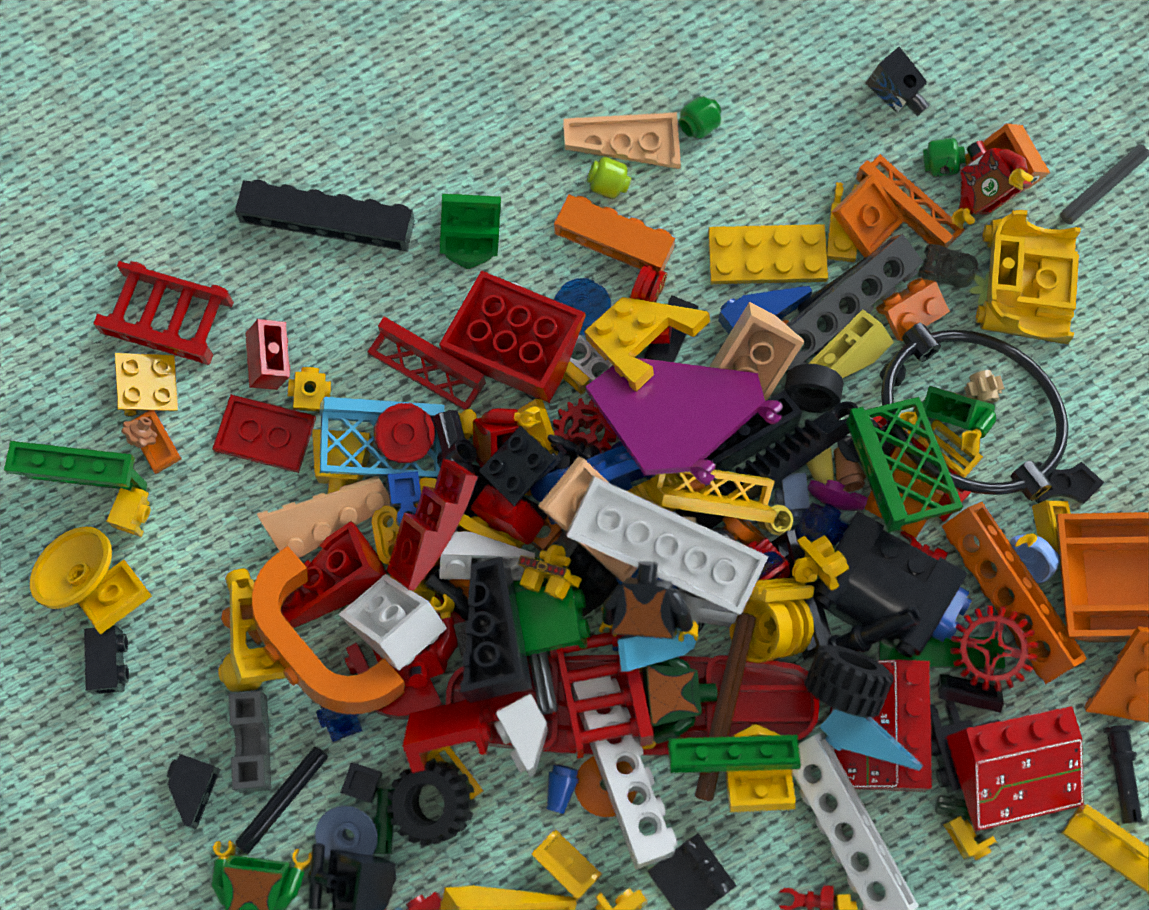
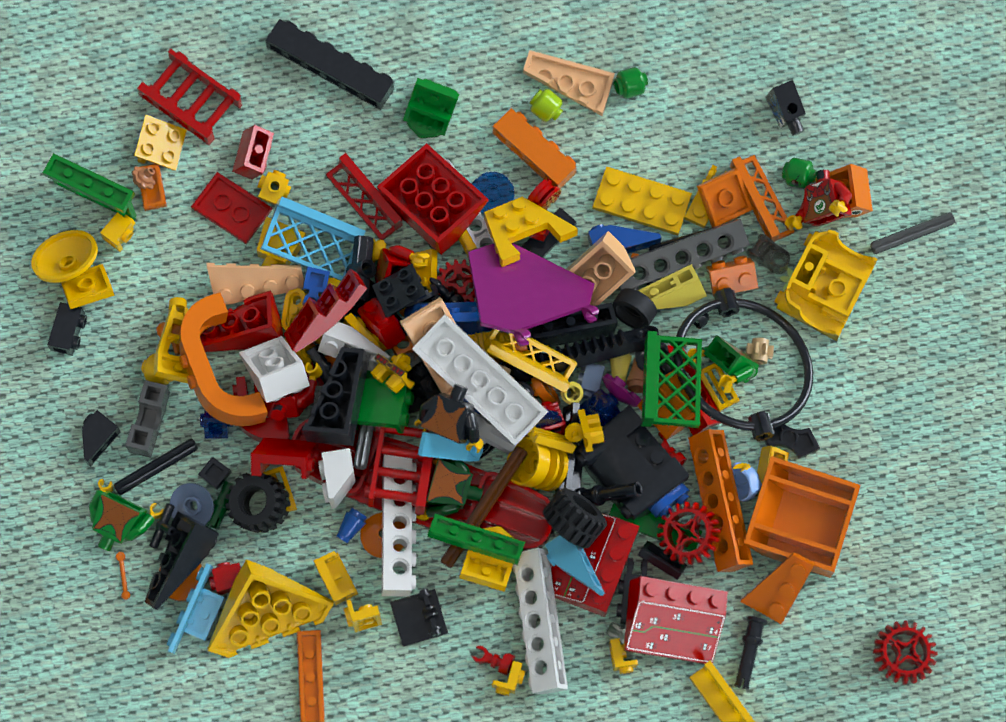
camera: 15 degrees right, 0 degrees up
(404, 433) = (329, 241): red tile -> none

